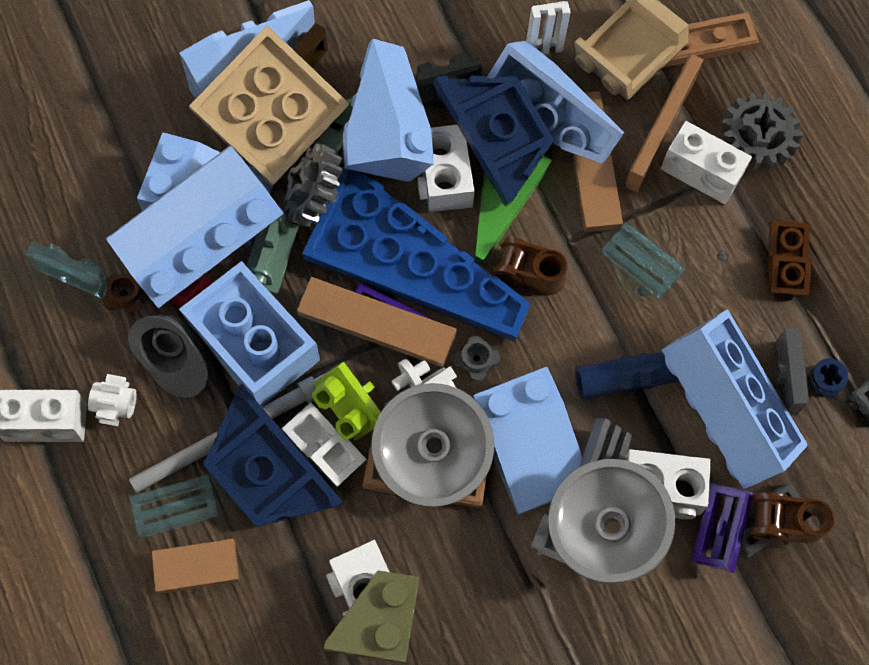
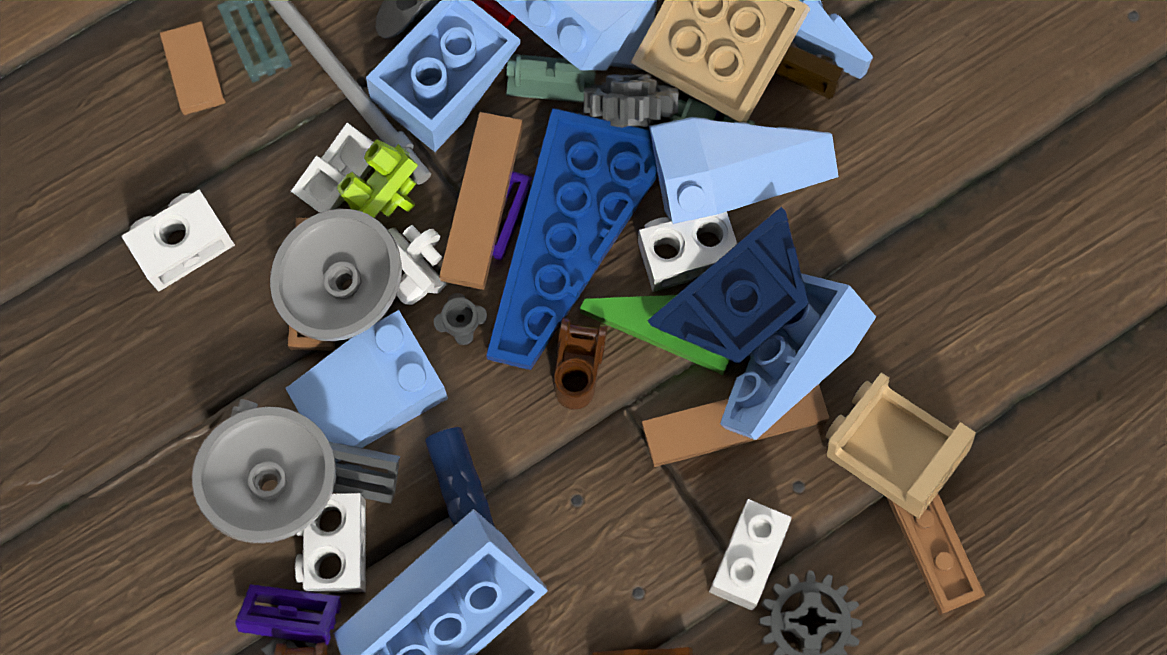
camera: 85 degrees right, 5 degrees up
(263, 467) = (300, 113): dark blue wing -> none
(378, 620) = (137, 247): olive wing -> none
(459, 67) = (813, 250): pearl dark grey hips -> none
(560, 29) = (891, 325): white tile -> none
(651, 249) = (633, 462): clear light blue tile -> none
(663, 123) = (799, 500): medium nougat tile -> none

